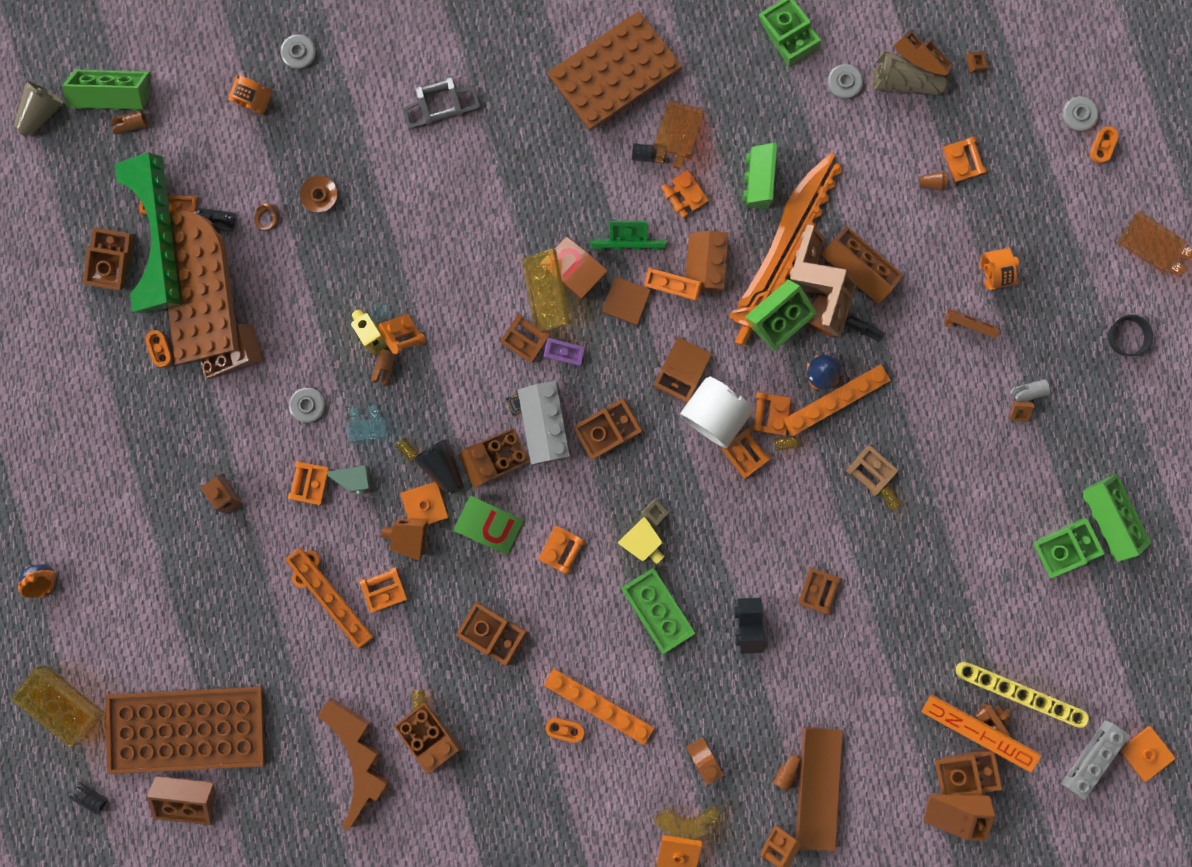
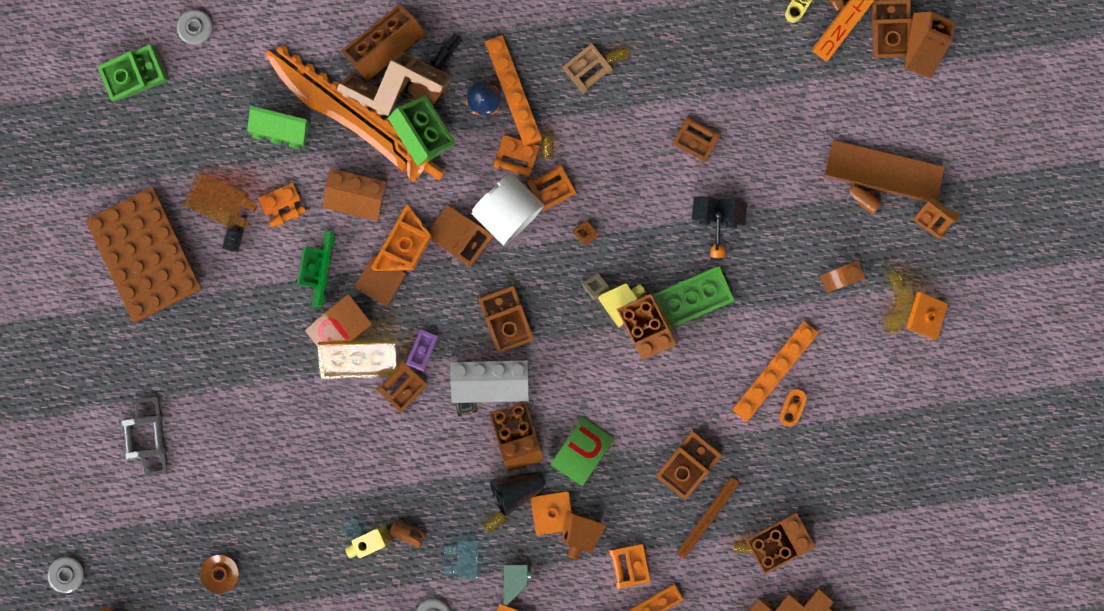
camera: 90 degrees left, 0 degrees up
(398, 328) = (371, 511): orange plate -> none
(442, 660) = (707, 518): none -> dark orange axle
(555, 547) = (614, 389): orange plate -> none
(622, 572) = (648, 326): none -> dark orange slope
(664, 317) = (404, 244): none -> orange wing
(673, 284) = (372, 231): orange tile -> none
(706, 494) = (585, 233): none -> dark orange tile
(711, 630) = (718, 249): none -> hinge

